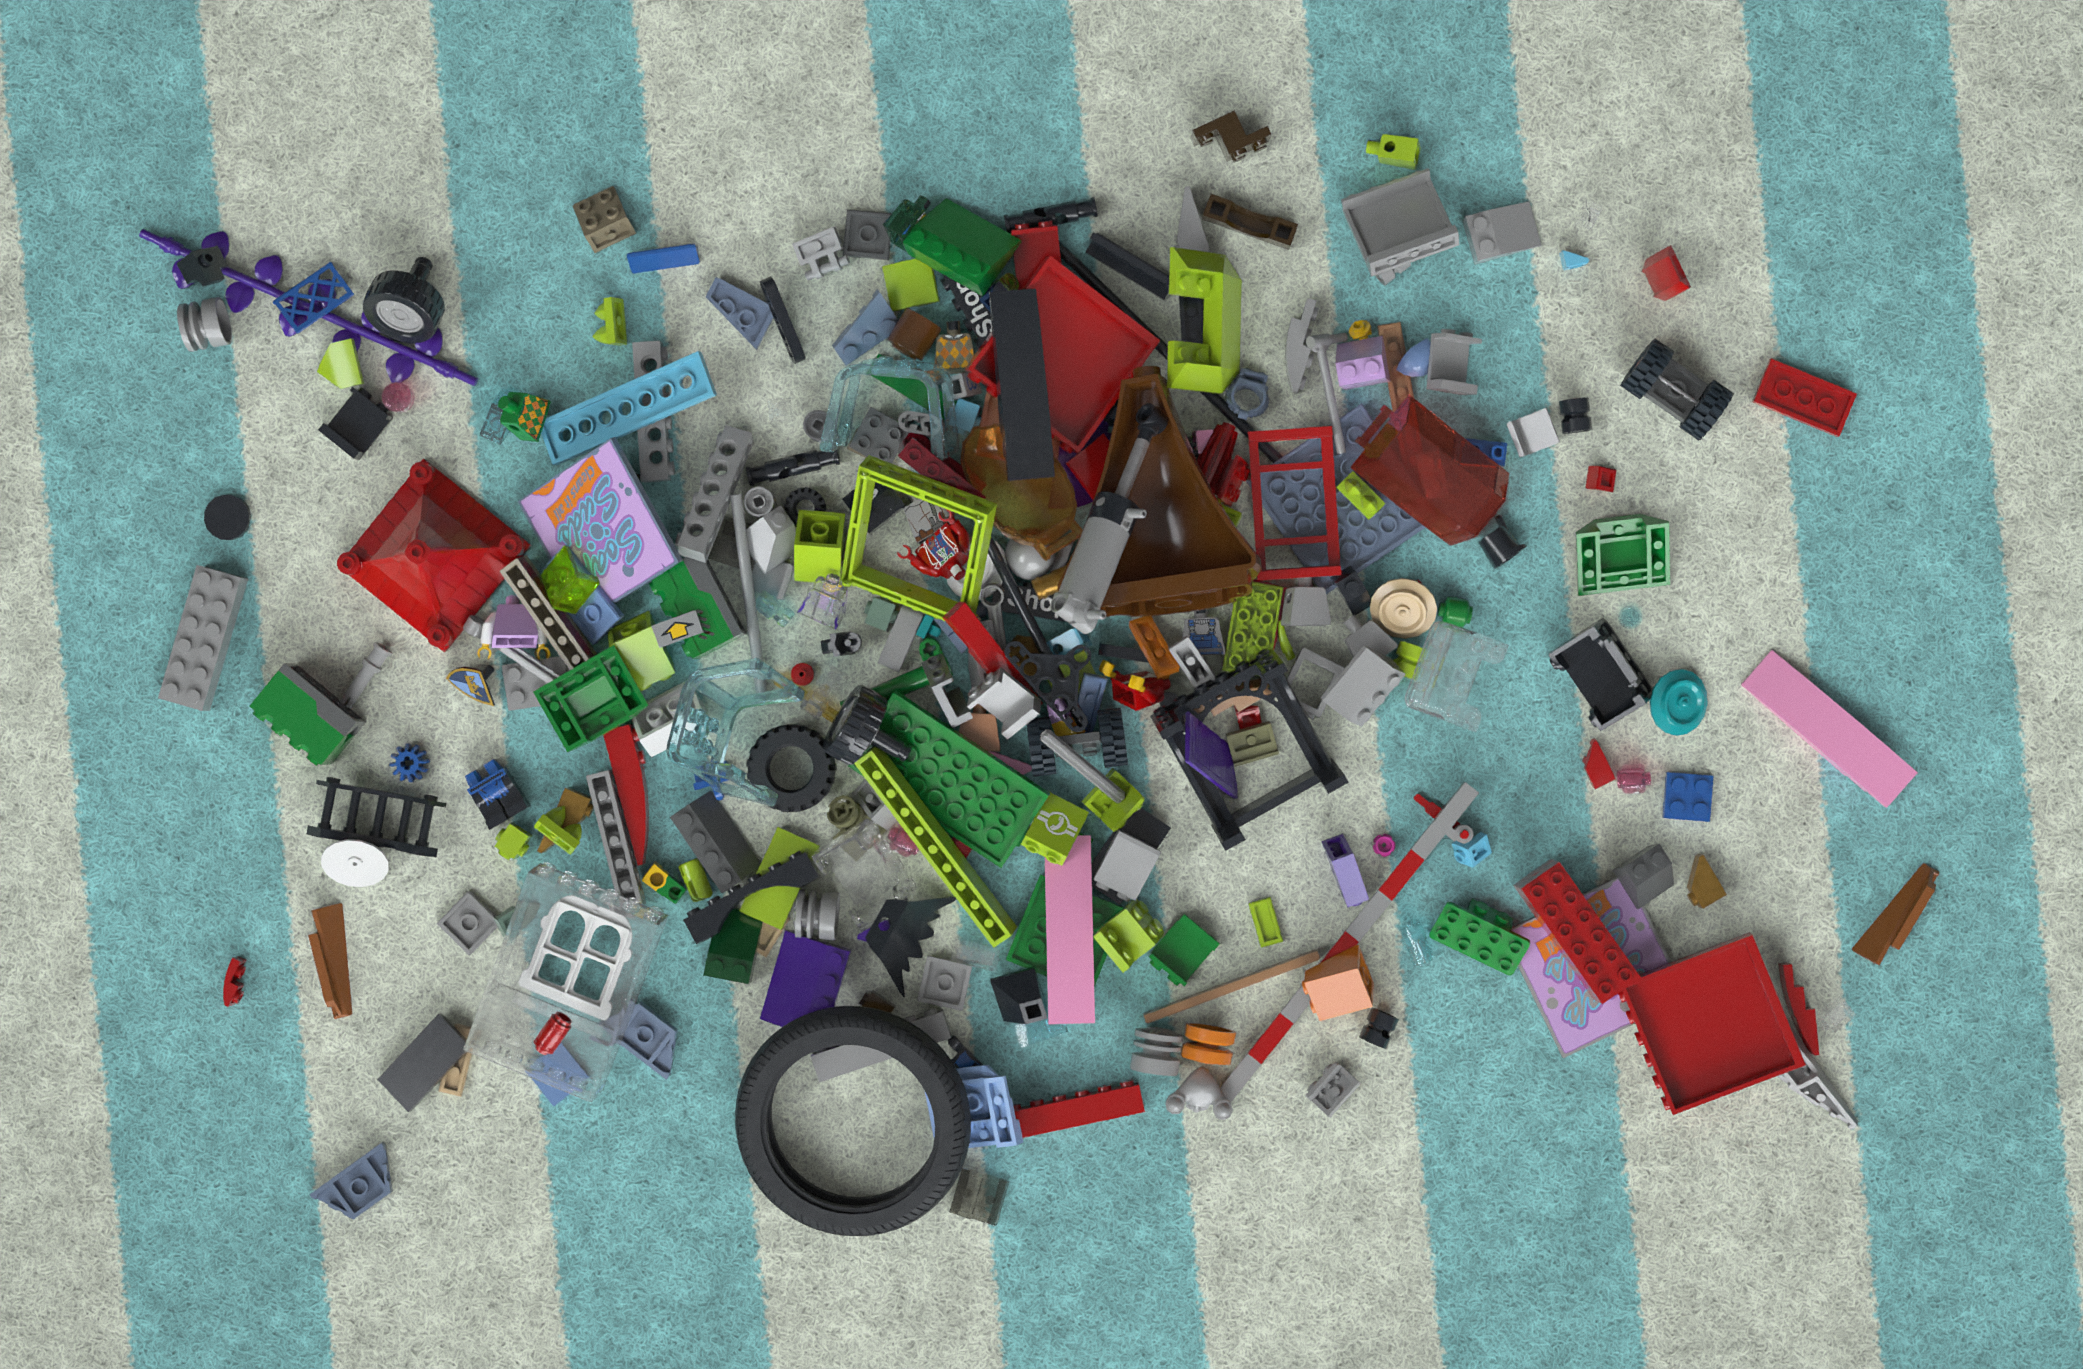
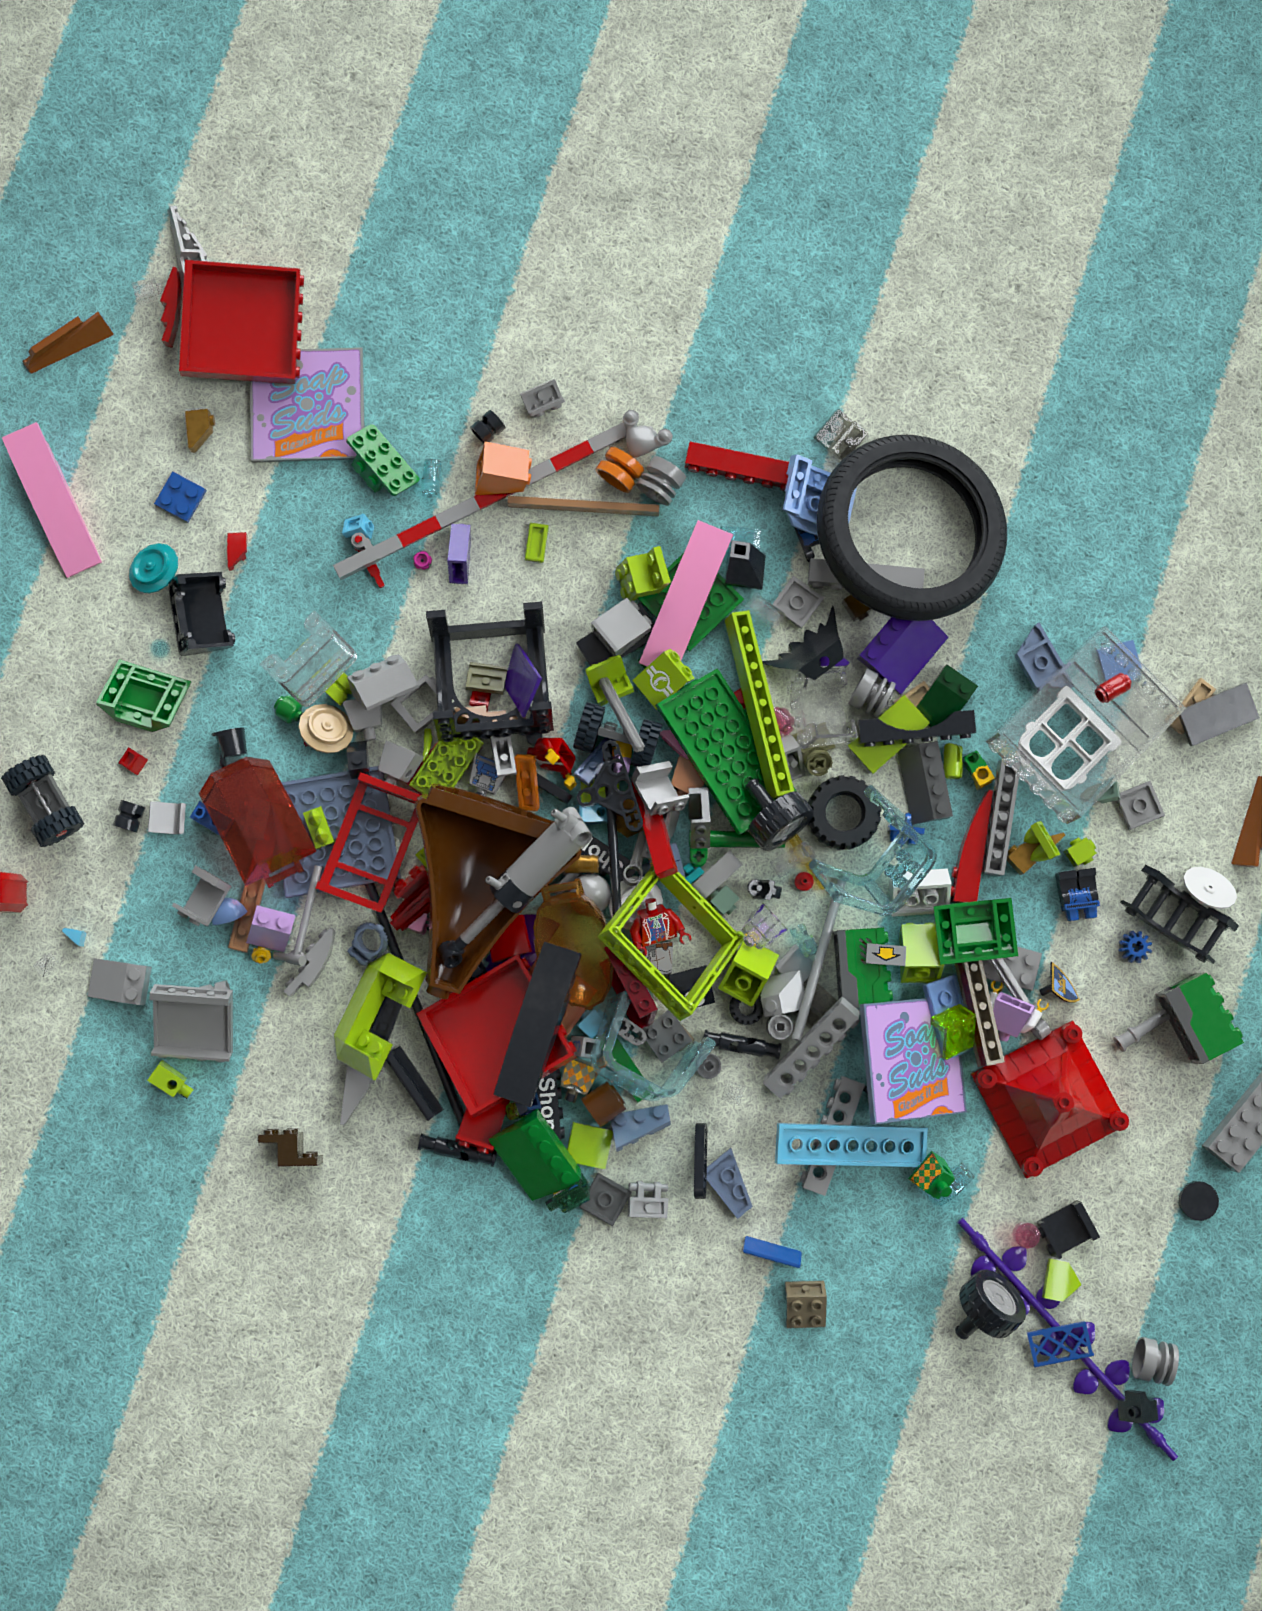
camera: 160 degrees left, 5 degrees down
(614, 316) = (833, 1214): lime tile -> none
(1182, 950) = (607, 548): green panel -> none
(1259, 226) = (318, 1086): dark brown arch -> none
(1576, 931) = (307, 431): red brick -> none
(1633, 778) = (213, 527): clear pink head -> none
(1646, 875) = (238, 453): dark grey slope -> none

